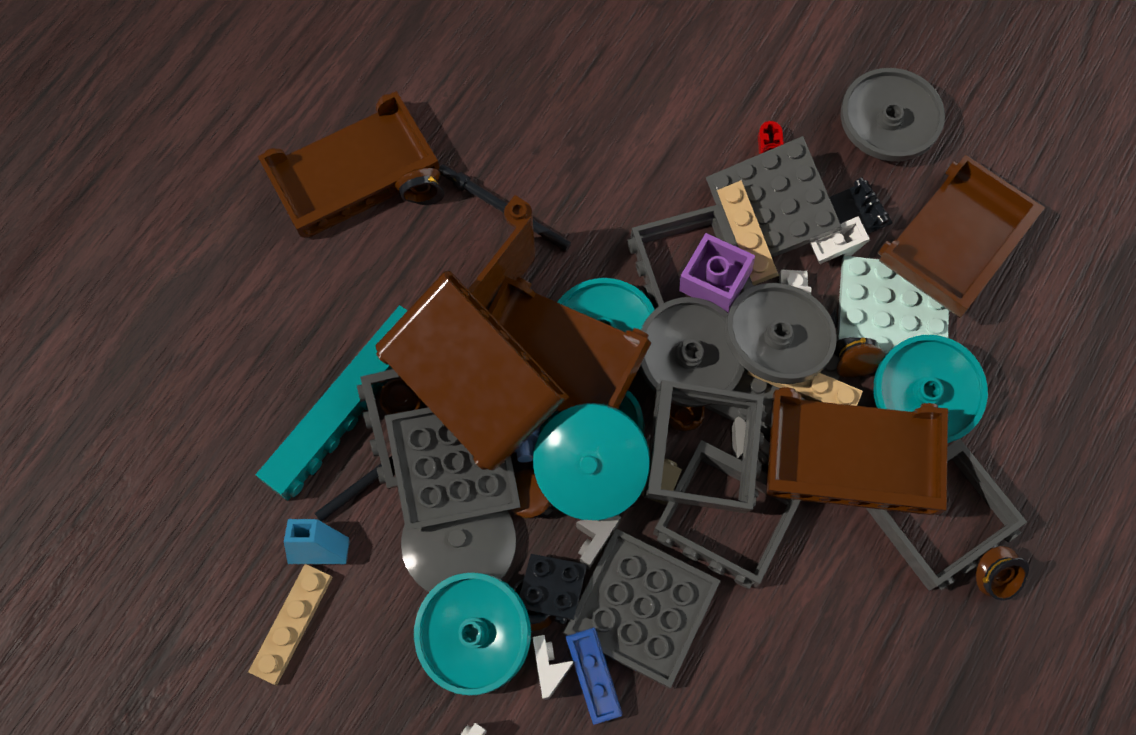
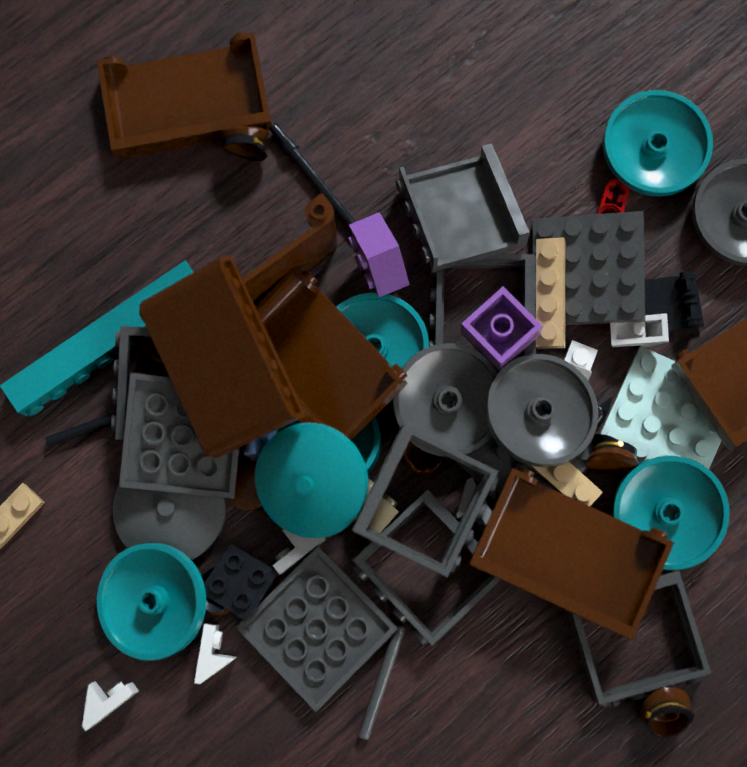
camera: 20 degrees right, 10 degrees up
(314, 543) = (35, 468): dark azure slope -> none
(580, 244) = (378, 255): none -> medium lavender brick
(594, 675) = (250, 676): blue tile -> none
(643, 185) = (463, 211): none -> dark grey panel
(722, 641) = (381, 683): none -> dark grey bar
(791, 81) = (657, 143): none -> teal dish

